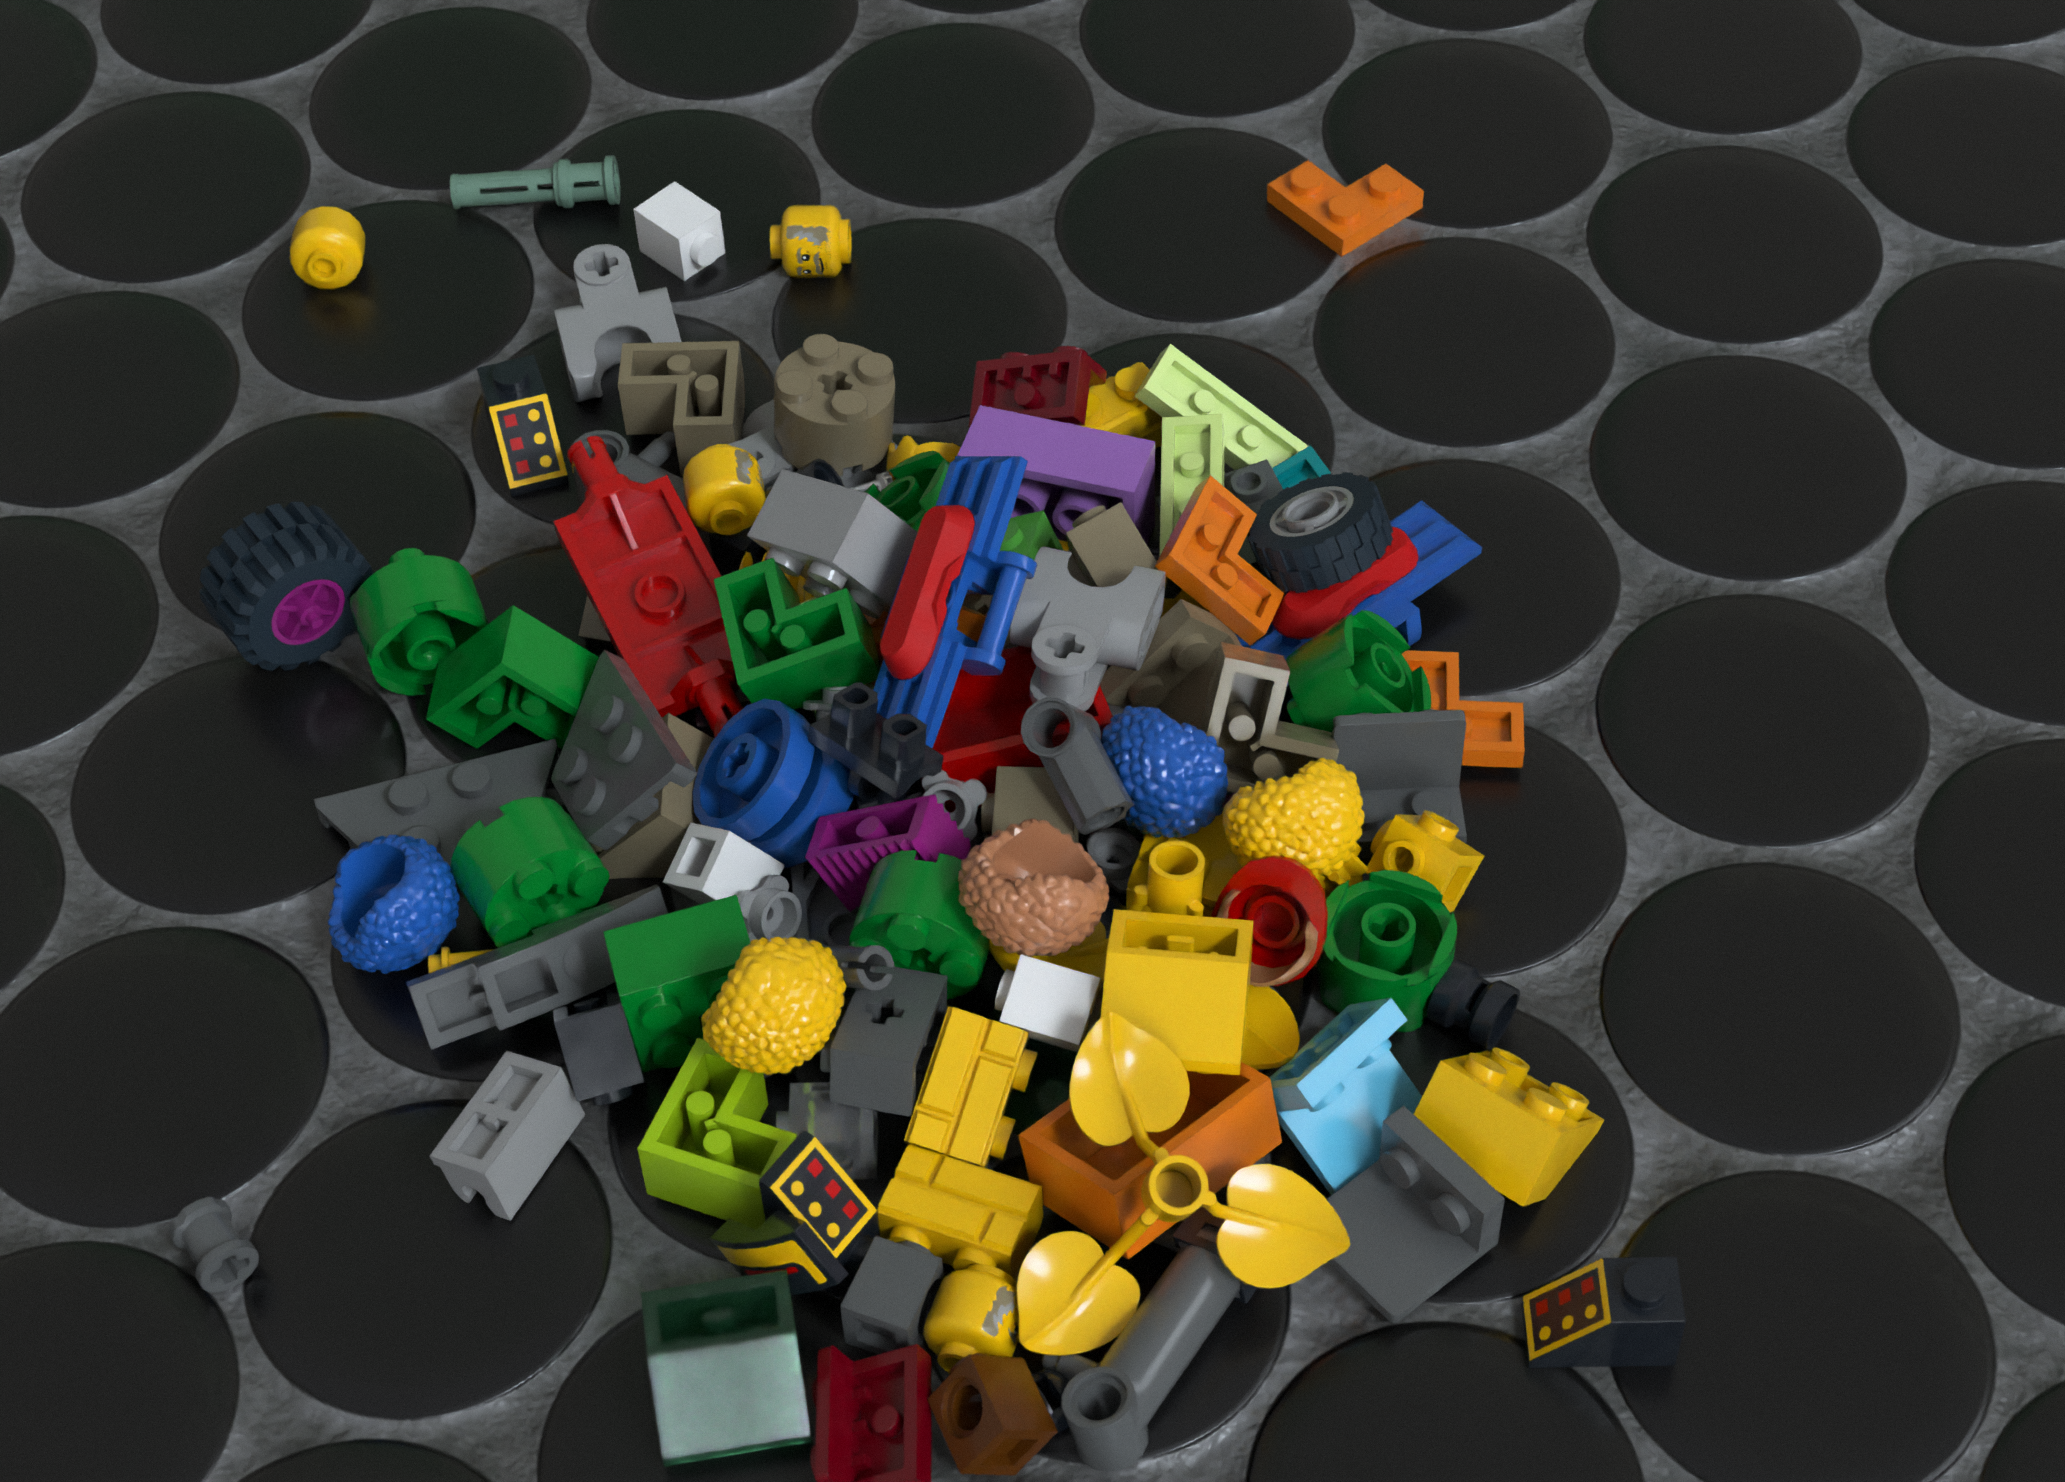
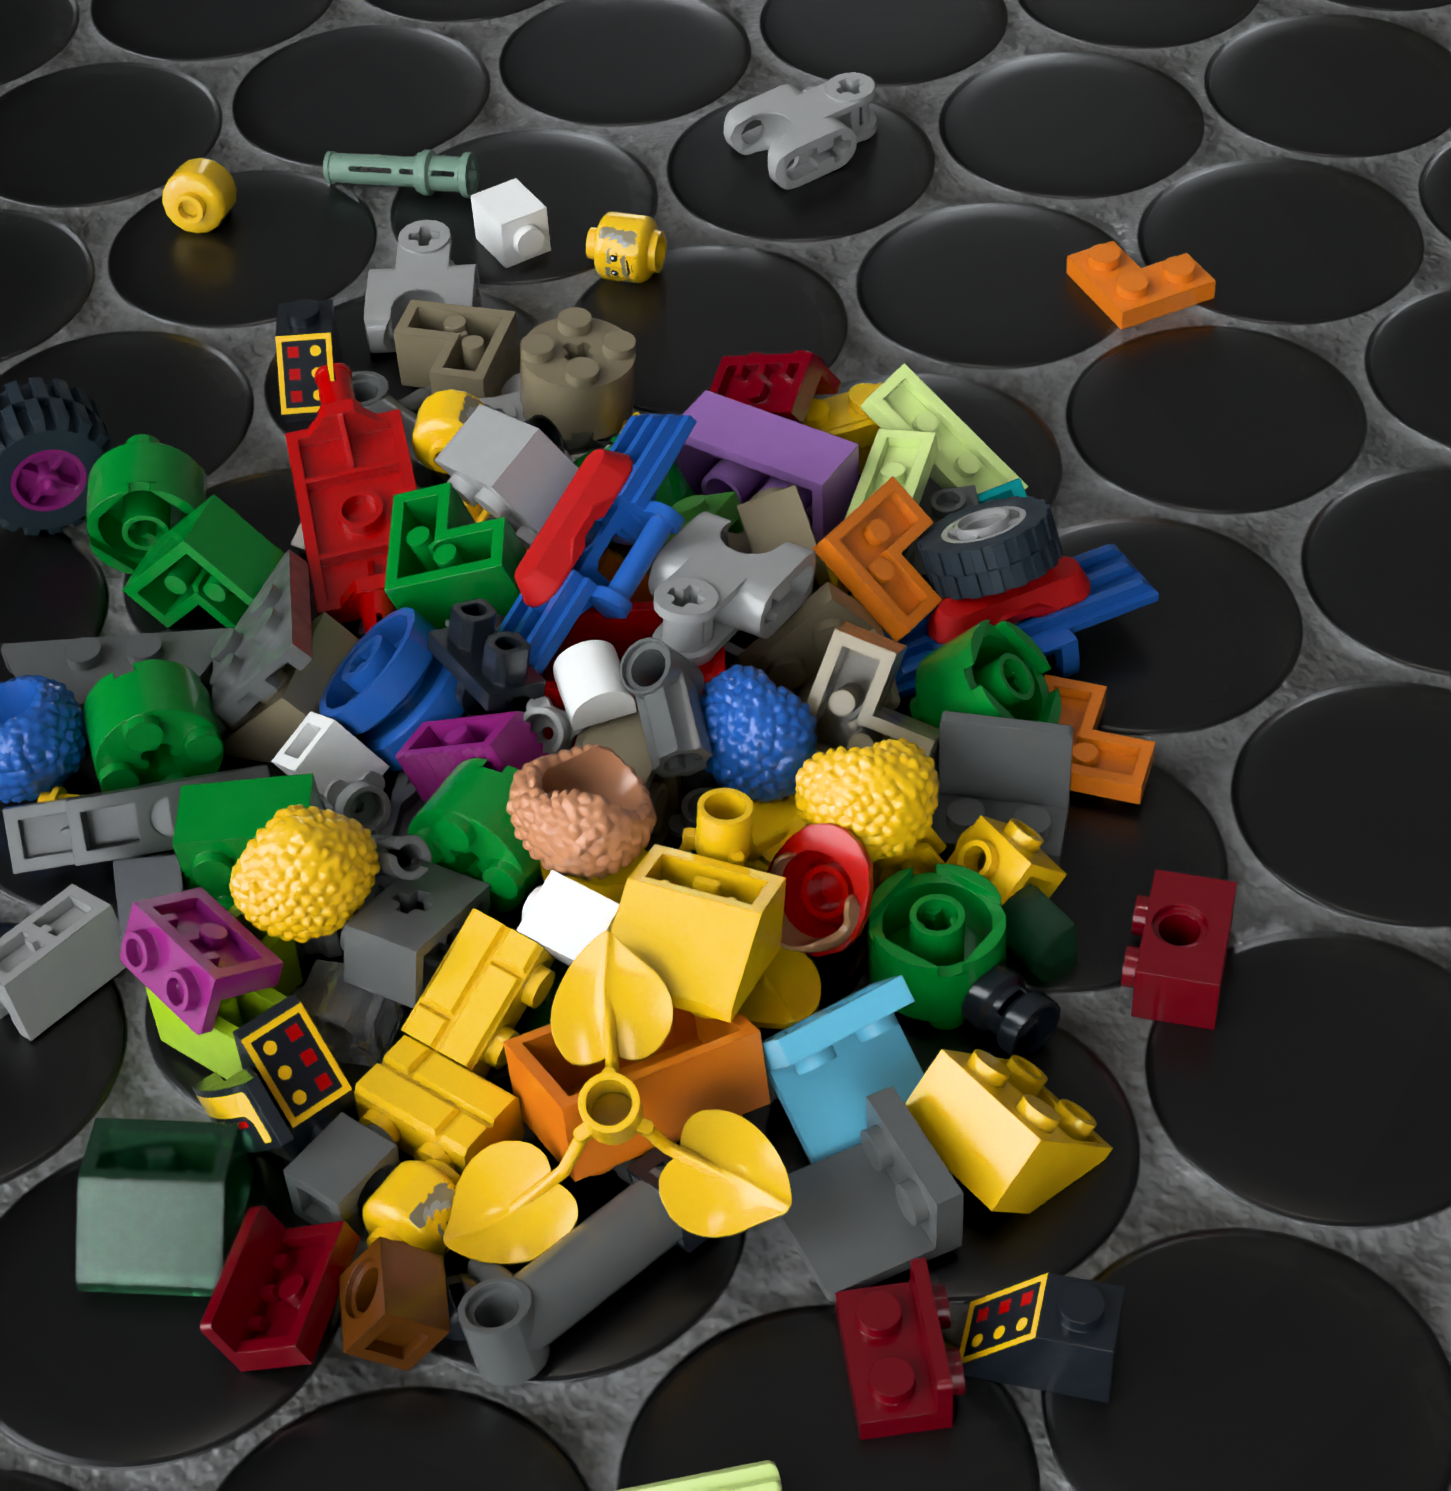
camera: 15 degrees right, 5 degrees down
(684, 1108) = (195, 955): none -> magenta bracket
(957, 74) = (809, 126): none -> light grey piece
(990, 752) = (592, 684): none -> white brick
(1477, 1360) = (898, 1356): none -> dark red bracket
(1481, 919) = (1040, 933): none -> clear green brick
(1612, 909) = (1181, 948): none -> dark red brick

